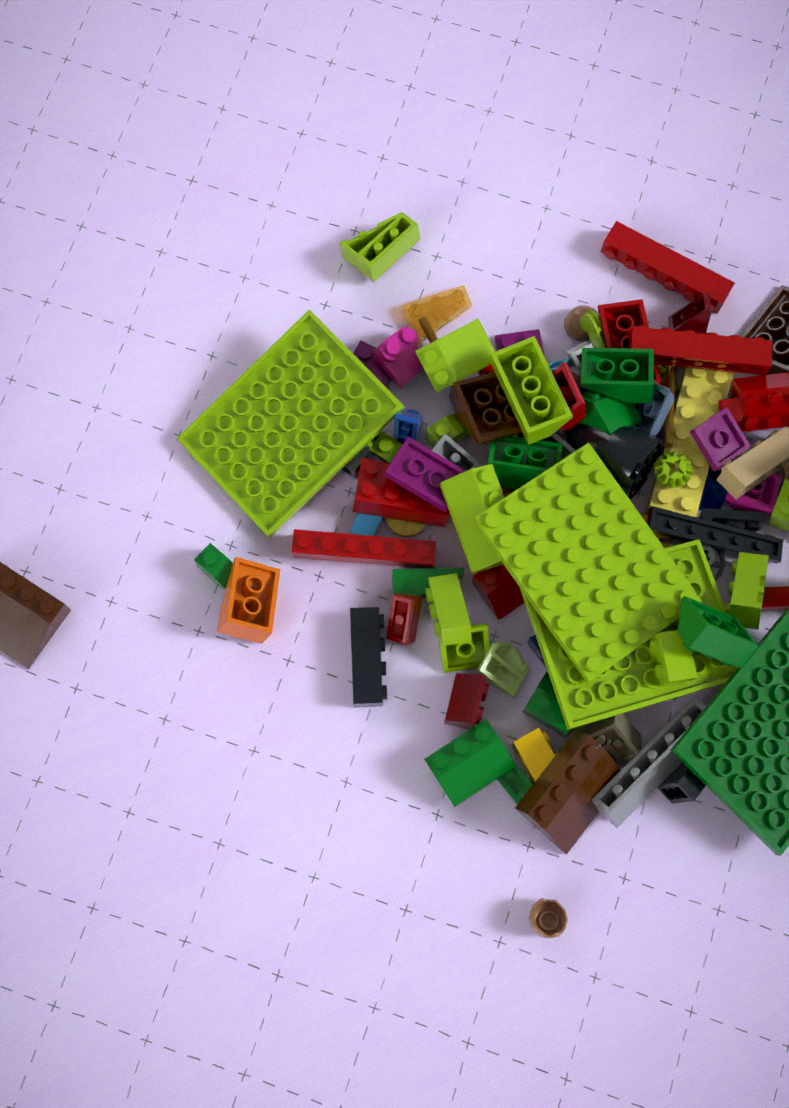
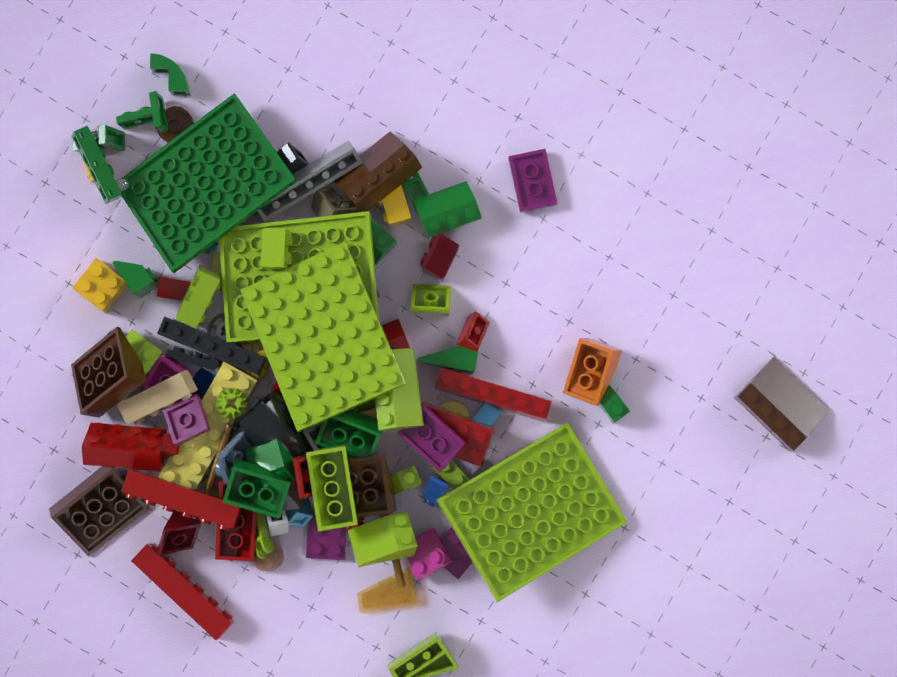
camera: 160 degrees left, 10 degrees up
(366, 657) = (508, 309): black brick -> none
(369, 827) = (532, 180): none -> magenta plate
(448, 609) = (439, 323): lime wedge -> none
(454, 453) = (404, 452): light grey slope -> none
(503, 667) = (403, 278): yellowish green slope -> none
(548, 918) = (415, 87): medium nougat hair -> none
(714, 633) = (239, 259): green slope -> none

